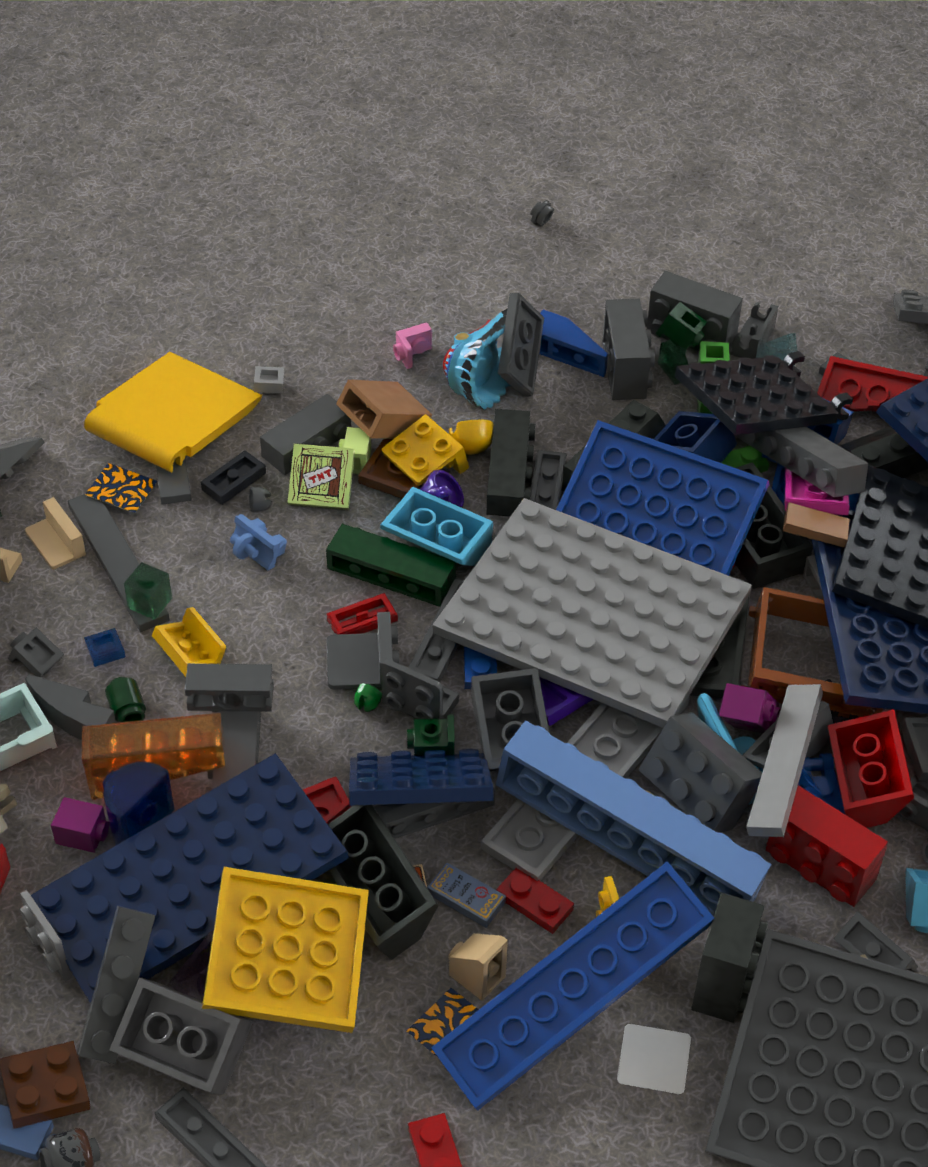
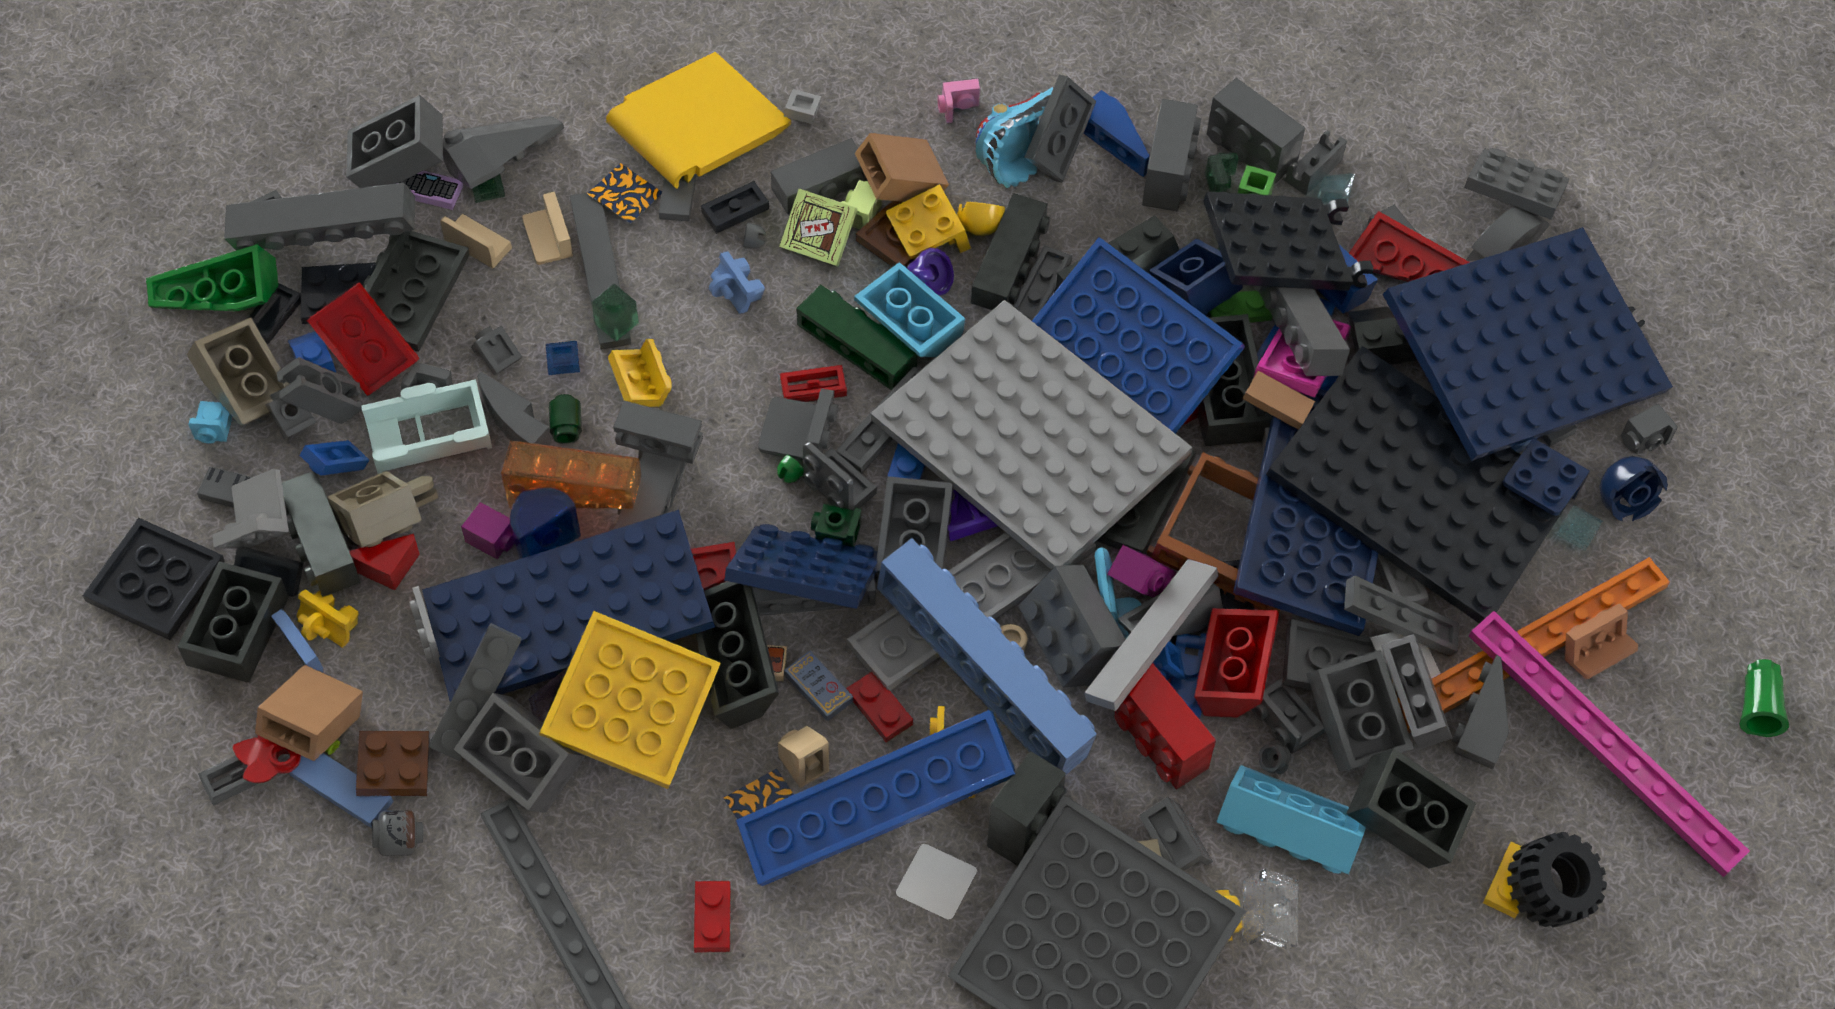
camera: 15 degrees right, 10 degrees up
(683, 327) = (1233, 145): dark green brick -> none

